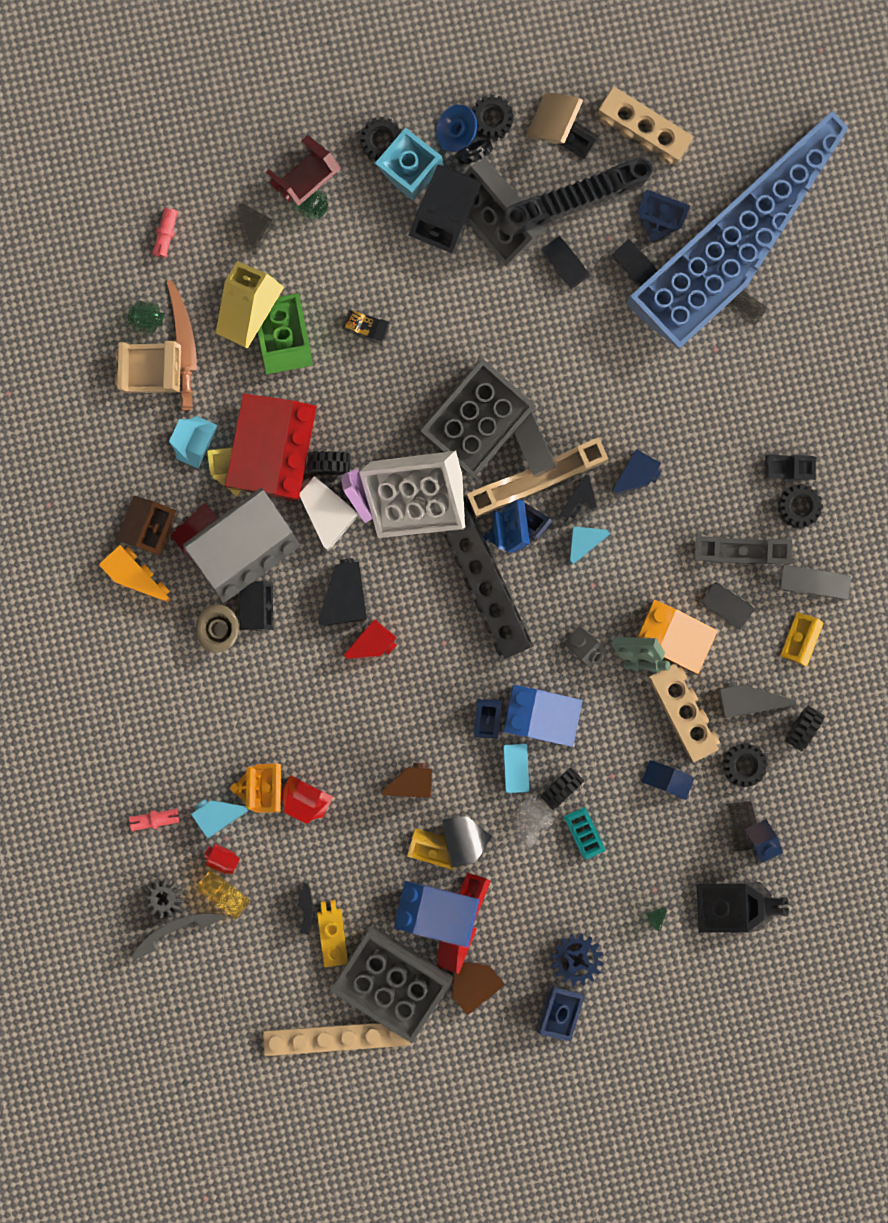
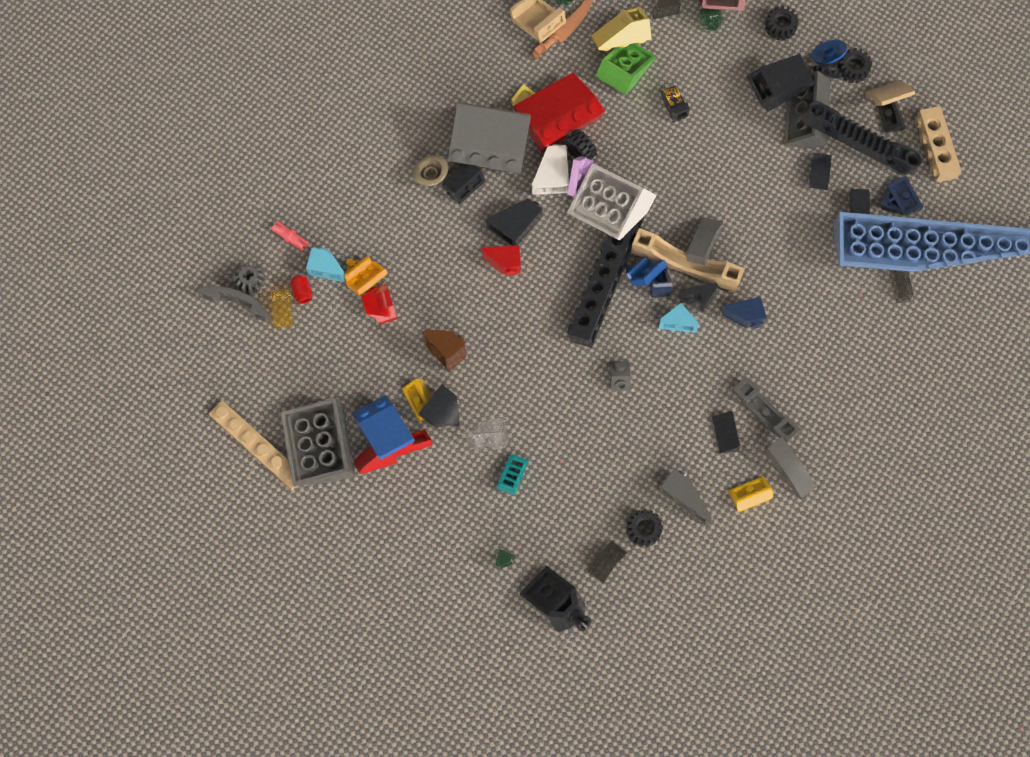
camera: 55 degrees right, 15 degrees down
(127, 572) = (415, 104): light orange slope -> none
(147, 525) = (451, 90): reddish brown slope -> none
(192, 440) = (521, 71): medium azure slope -> none
(306, 901) = (322, 354): black slope -> none
(332, 935) = (316, 387): yellow hinge -> none
(409, 163) = (784, 42): medium azure slope -> none
(474, 985) = (361, 492): reddish brown slope -> none
(476, 417) = (687, 198): dark grey slope -> none
(487, 718) = (526, 357): dark blue slope -> none
(516, 768) = (511, 400): medium azure slope -> none
(542, 715) = (556, 386): slope -> none
(559, 1013) = (391, 555): dark blue slope -> none
(562, 788) = (526, 433): black tyre -> none
(571, 969) = (441, 535): dark blue gear -> none
(641, 653) = (648, 400): sand green plate -> none
(668, 779) = (592, 493): dark blue slope -> none
(681, 636) = (677, 418): slope -> none
(694, 749) = (645, 435): tan brick -> none
(763, 841) = (609, 578): dark blue slope -> none
(790, 467) = (842, 397): black slope -> none
(800, 520) = (822, 430): black tyre -> none
(804, 728) = (701, 539): black tyre -> none

